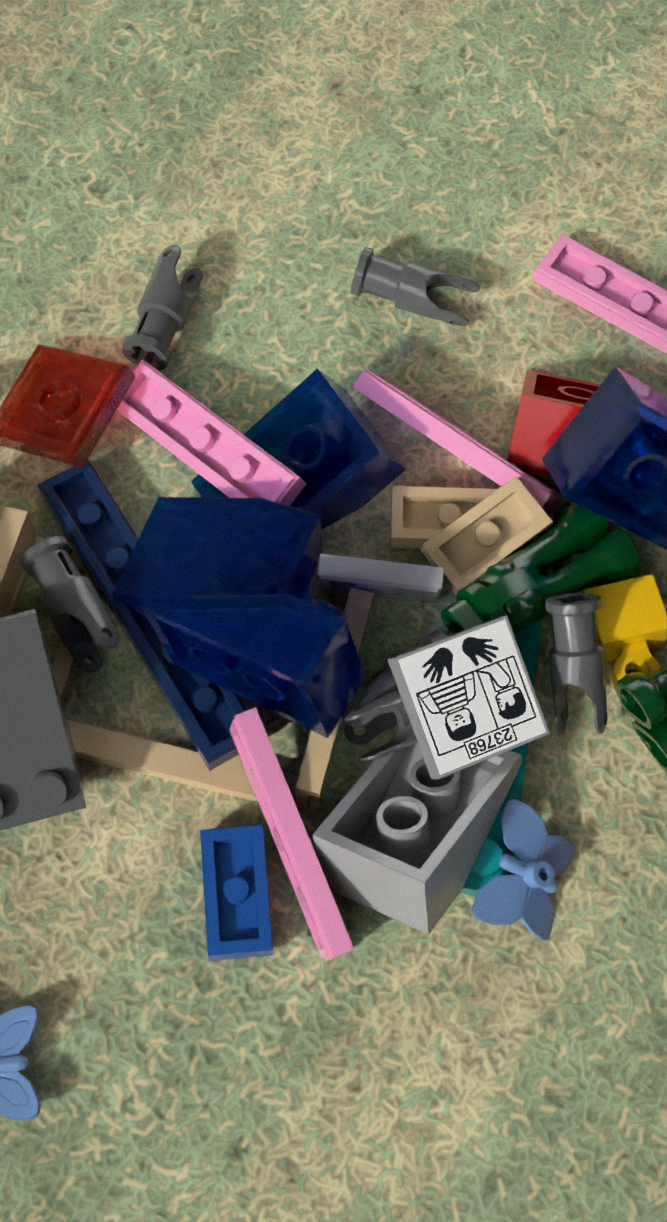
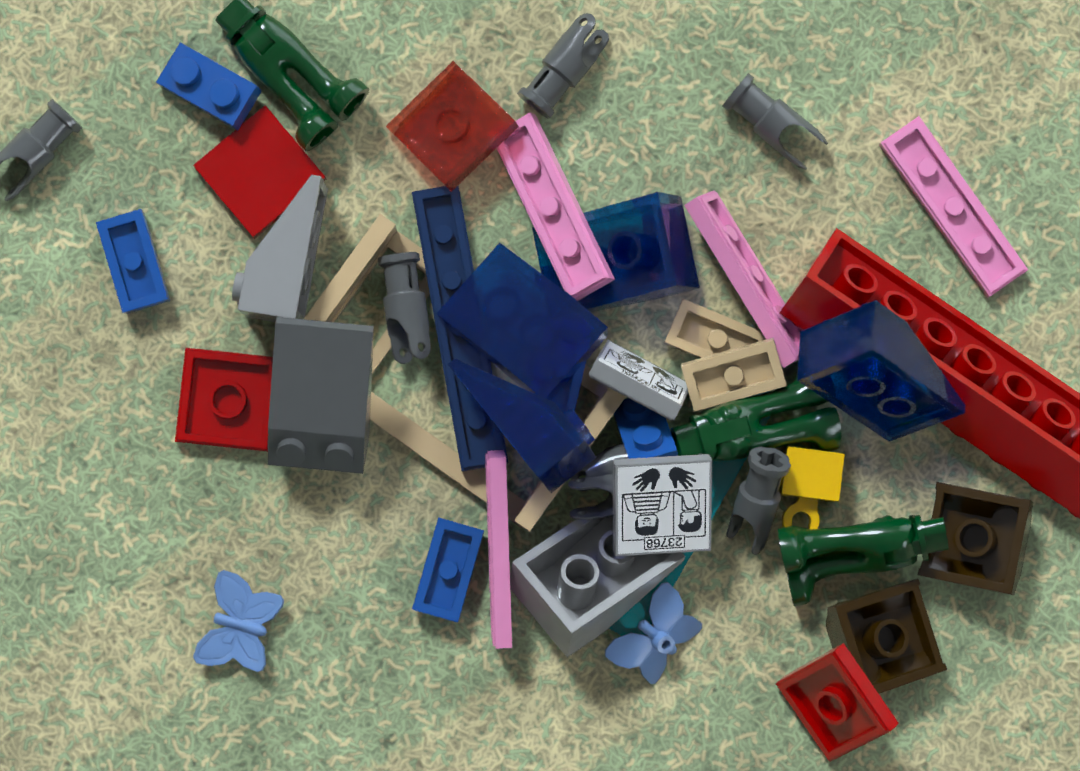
camera: 20 degrees right, 20 degrees up
(405, 627) = (643, 431): none -> blue plate

